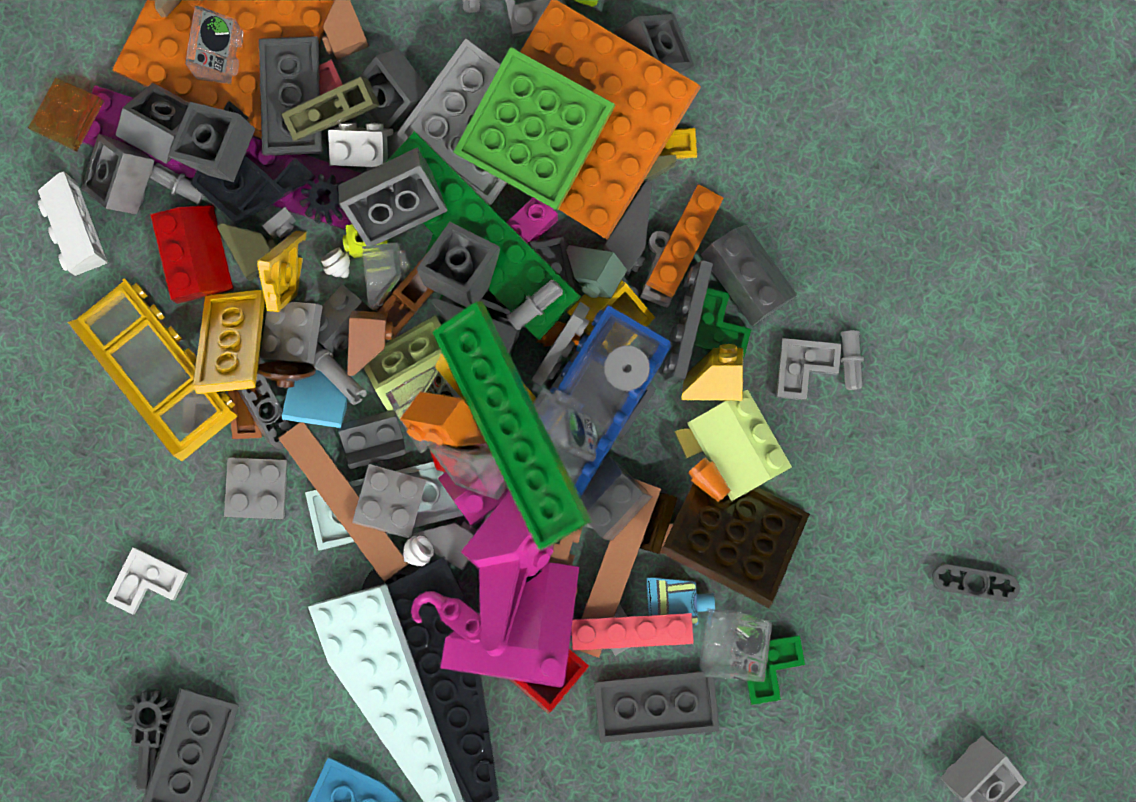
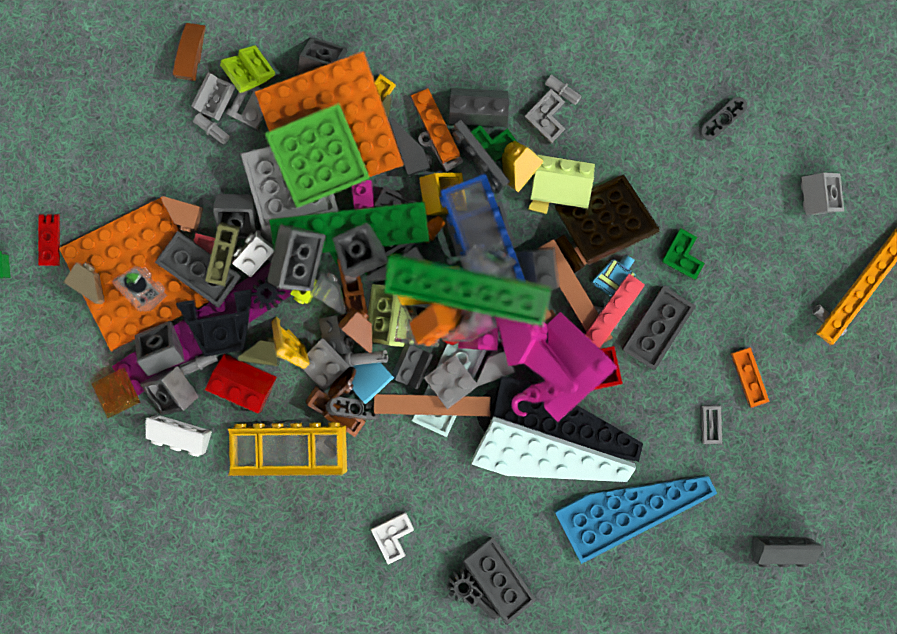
camera: 50 degrees left, 5 degrees up
(212, 141) = (191, 328): dark grey slope -> none
(229, 342) = (304, 400): yellow plate -> none
(256, 488) = (389, 444): light grey plate -> none
(280, 224) = (262, 327): light grey plate -> none
(336, 263) = (305, 313): white plate -> none
(418, 551) = (488, 387): white plate -> none
(535, 304) = (411, 228): light grey axle -> none
(562, 345) = (441, 230): light grey plate -> none
(596, 270) = (416, 183): sand green slope -> none
(626, 368) = (482, 207): light grey piece -> none
(709, 479) = (568, 210): orange cone -> none
(734, 645) = (661, 264): clear slope -> none

